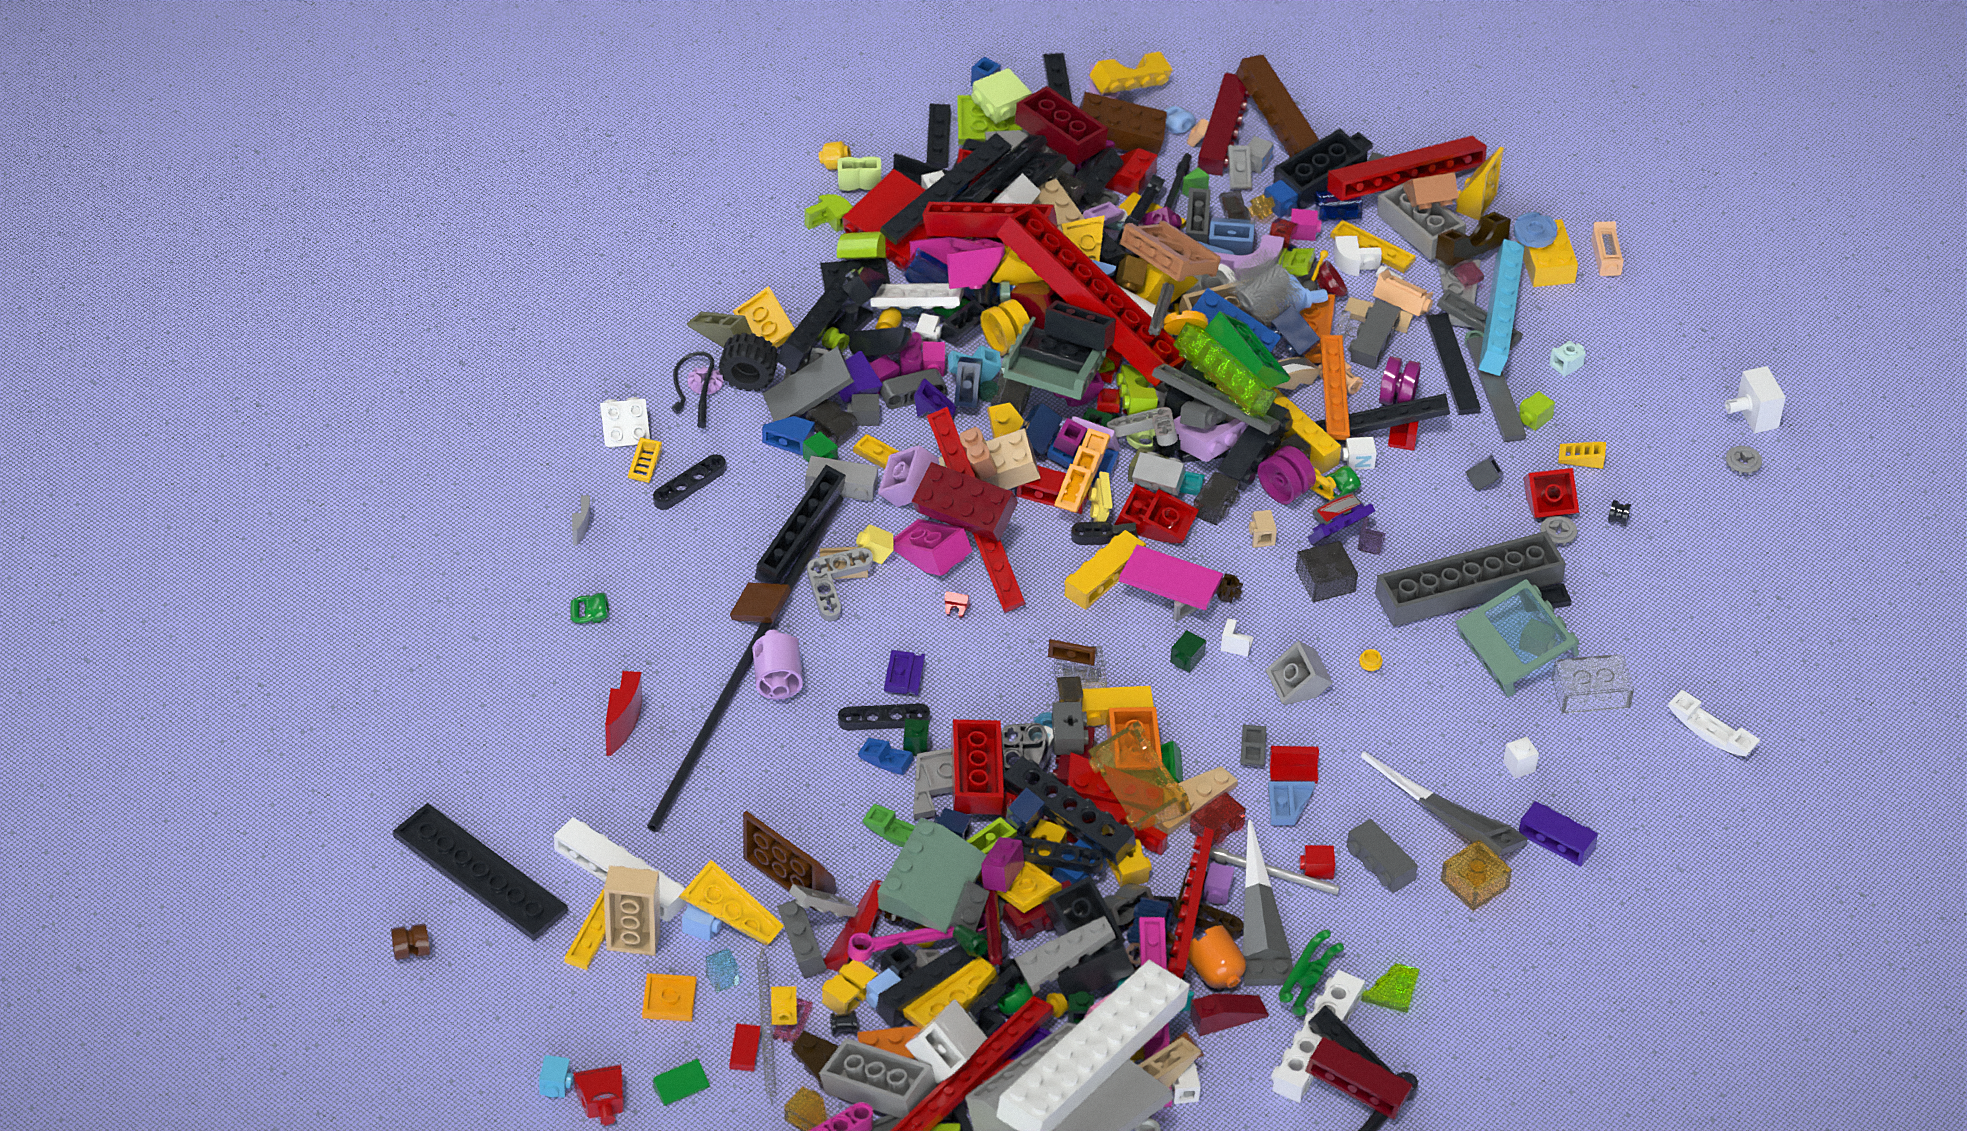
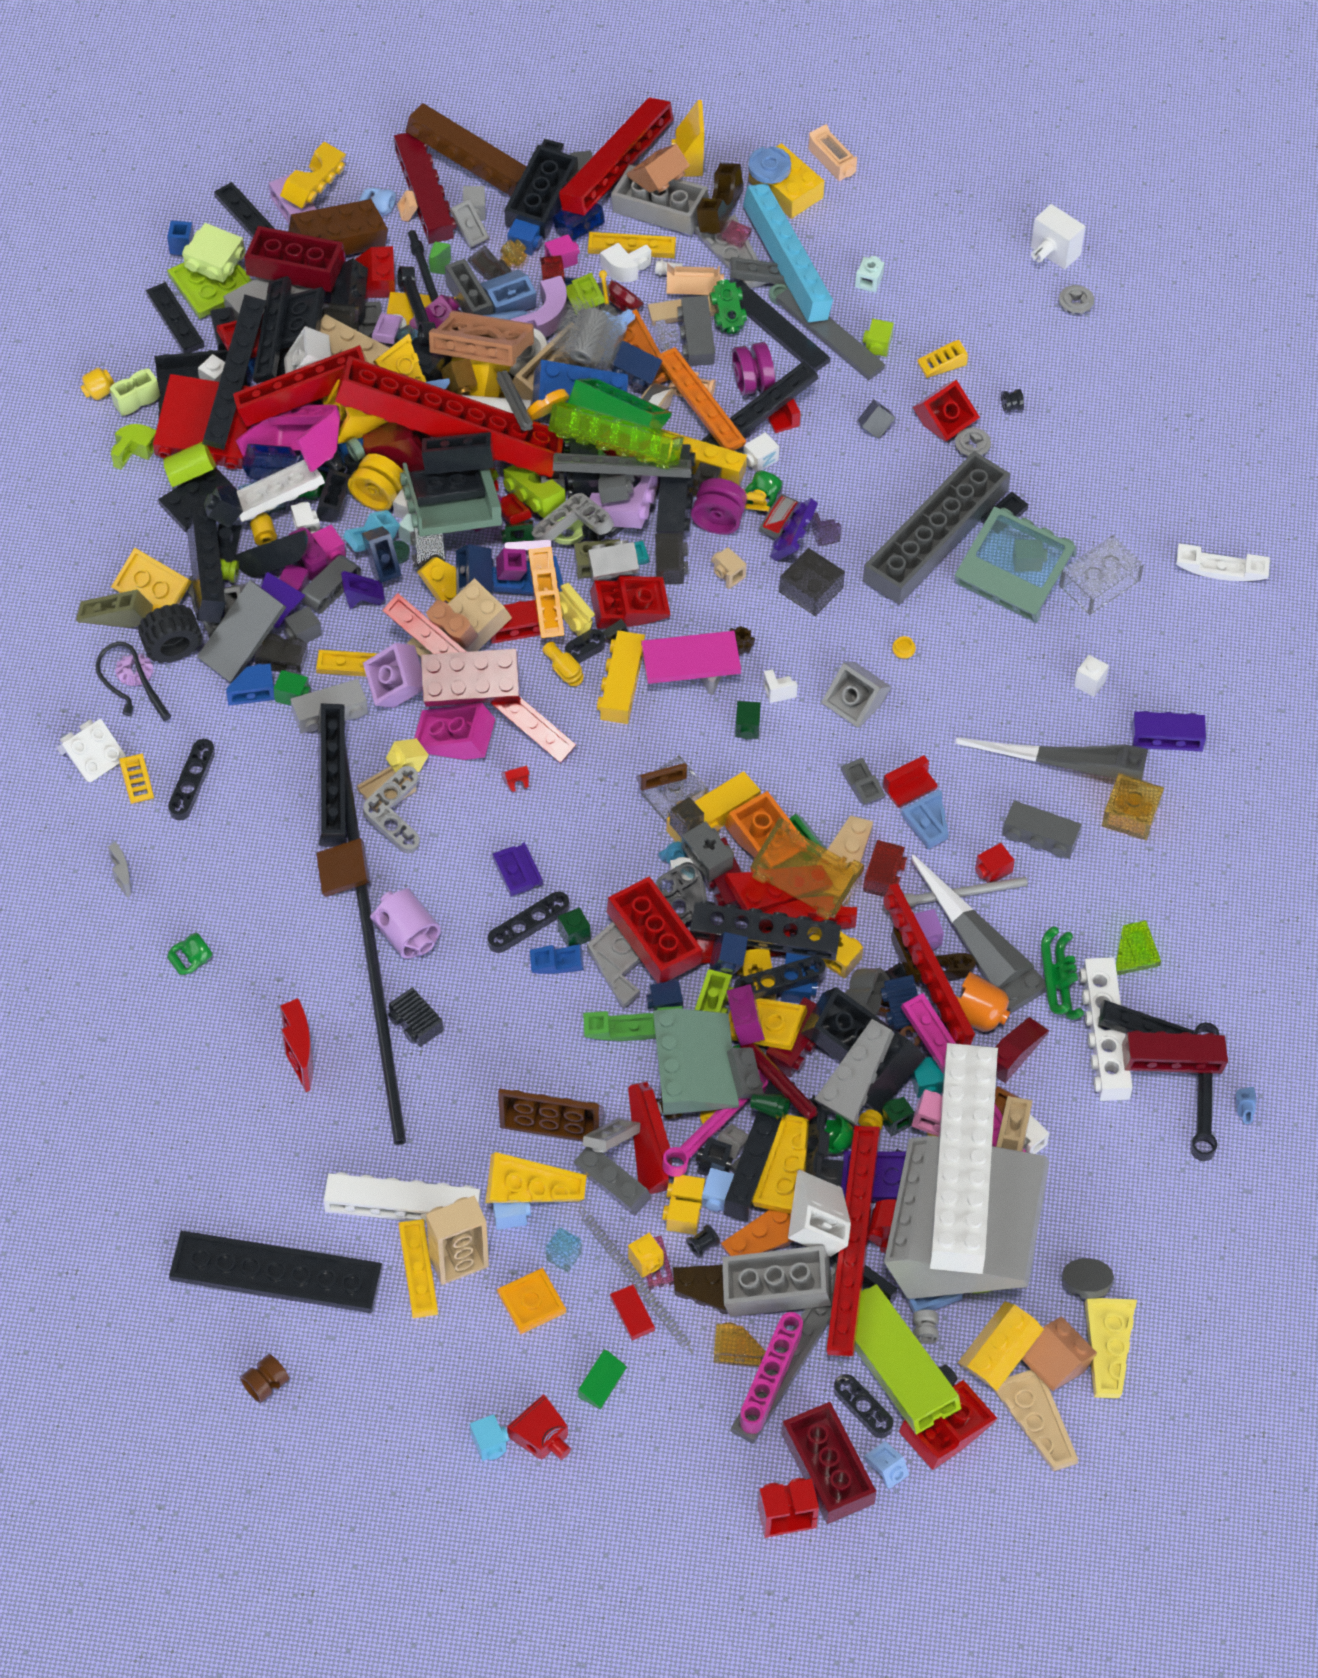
camera: 30 degrees left, 10 degrees up
(735, 741) = (415, 1017): none -> black brick
(1062, 538) = (564, 664): none -> yellow arm
(1418, 320) = (726, 300): none -> green brick

